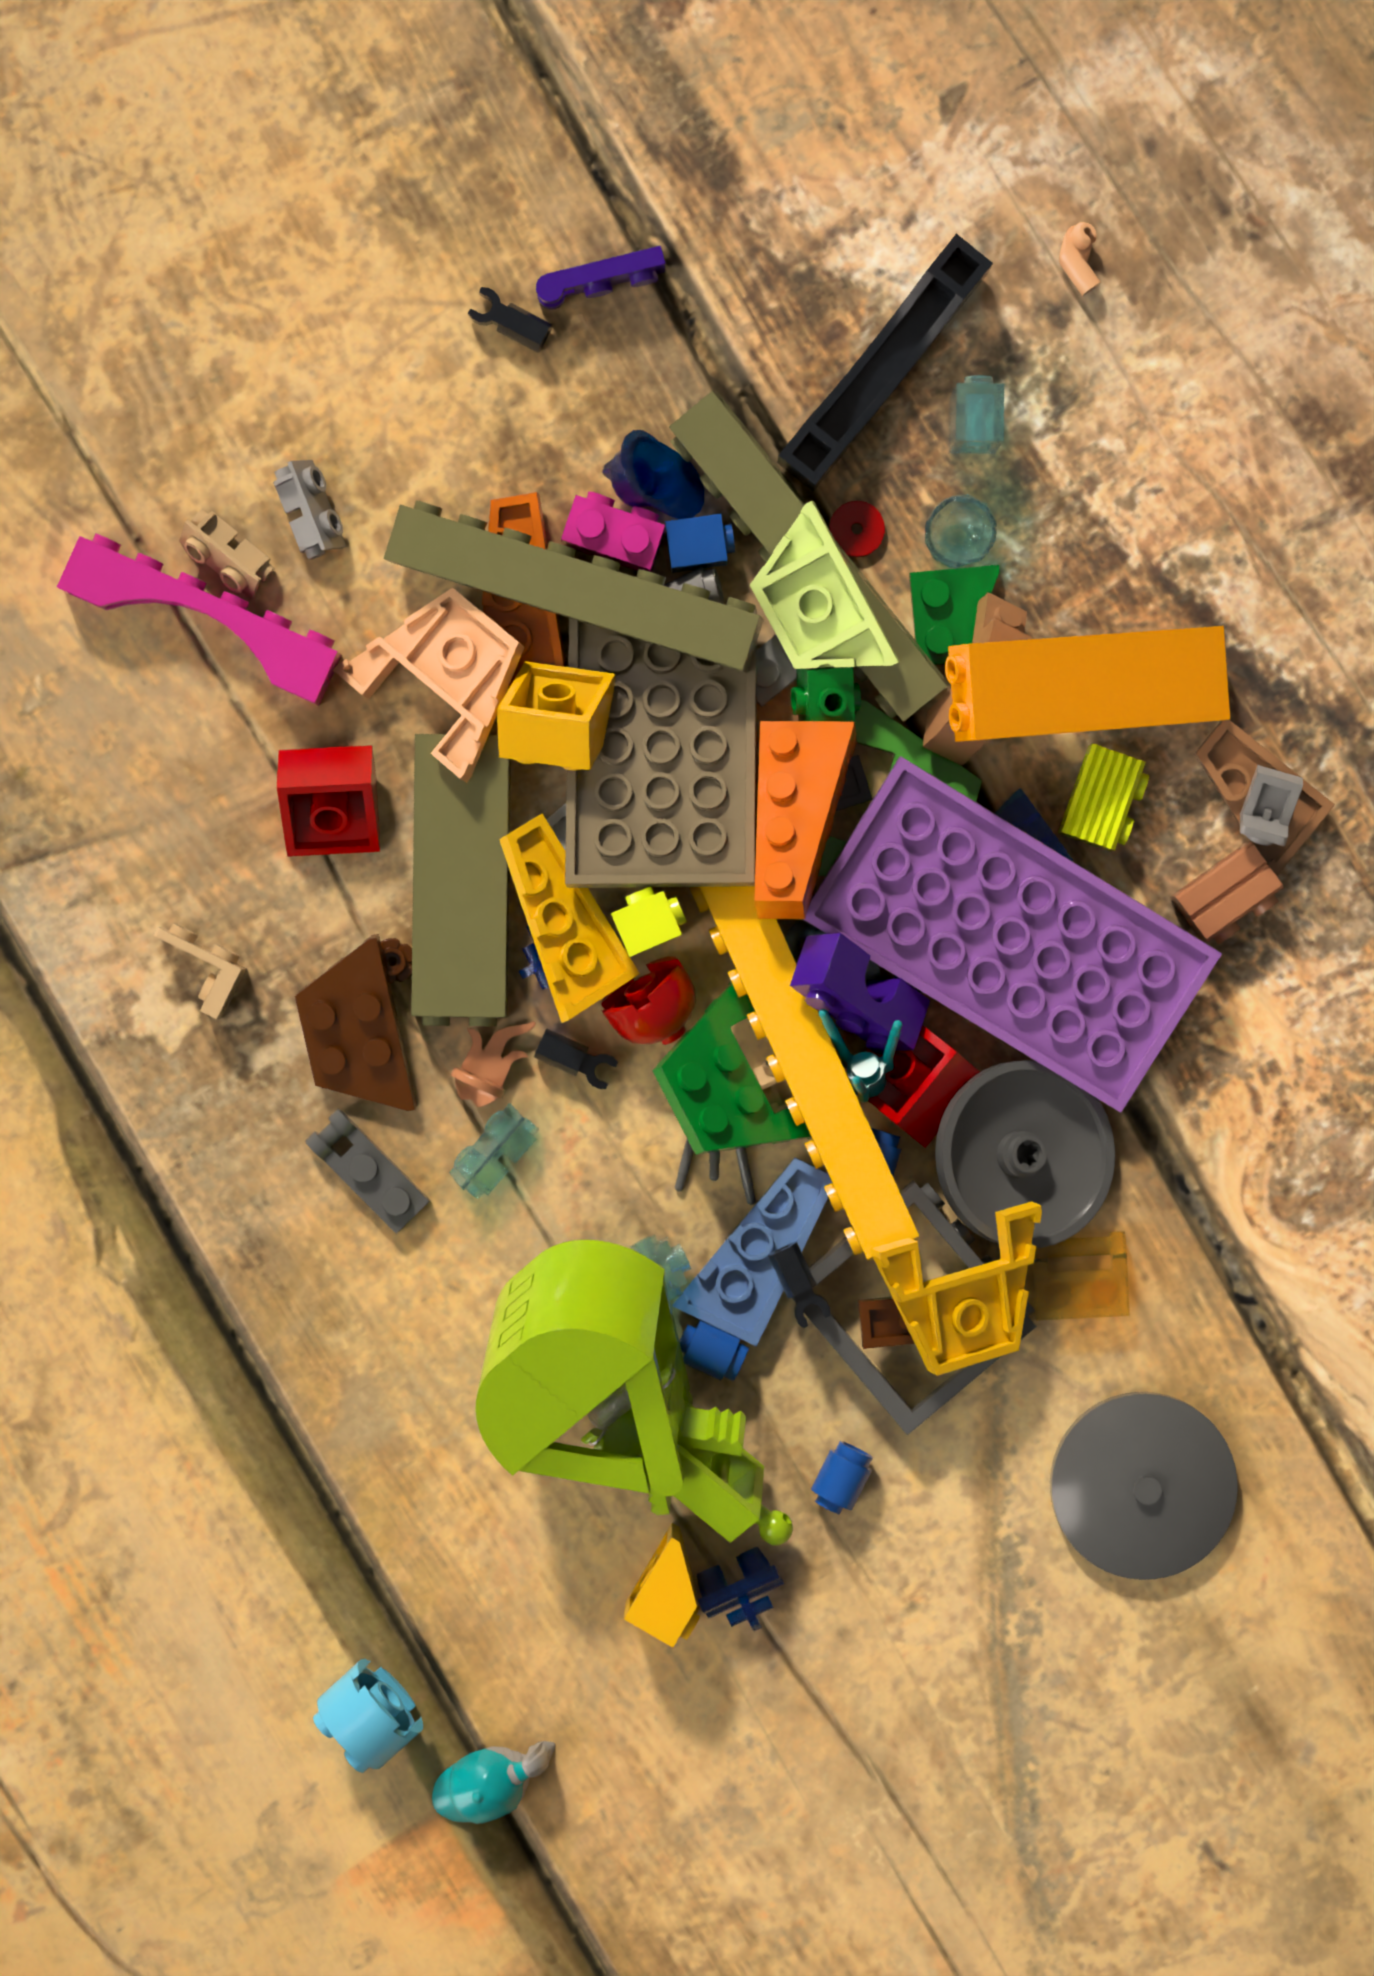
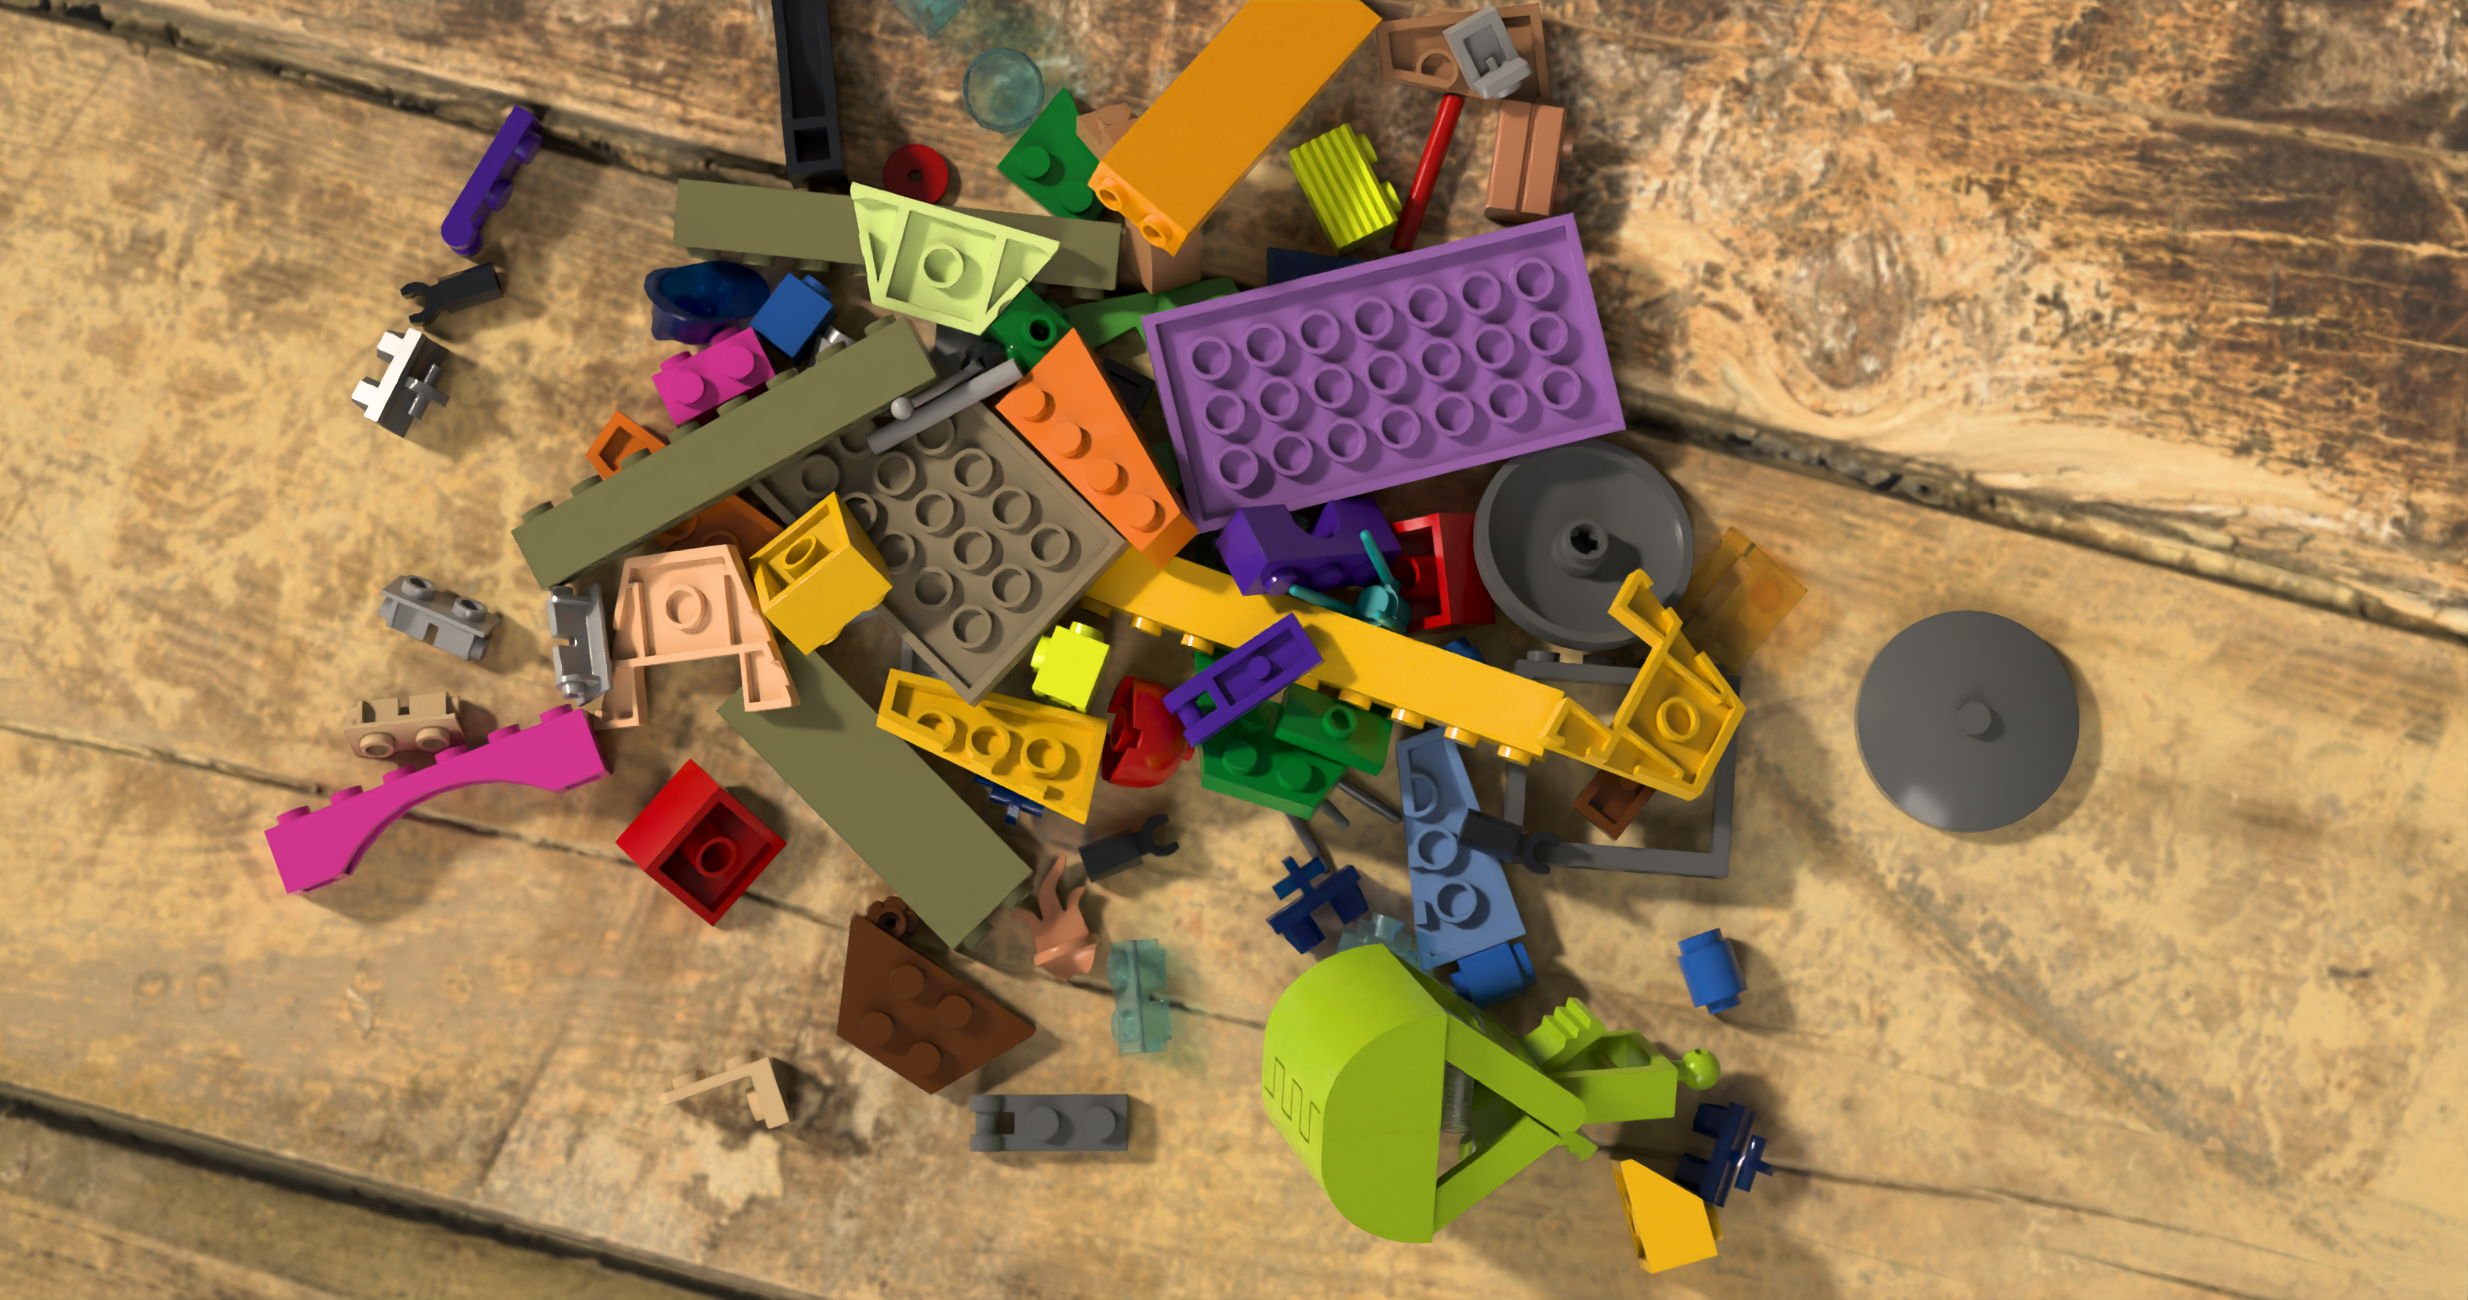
camera: 55 degrees left, 5 degrees down
(364, 628) = (584, 666): none -> light grey hinge
(430, 349) = (407, 384): none -> dark grey hips
(631, 1198) = (1338, 890): none -> clear blue hips
(731, 690) = (945, 406): none -> light grey bar
(741, 1035) = (1244, 679): none -> dark purple plate
(764, 1115) = (1333, 729): none -> green plate
(777, 686) = (974, 362): none -> hinge
(1162, 838) = (1427, 173): none -> red bar

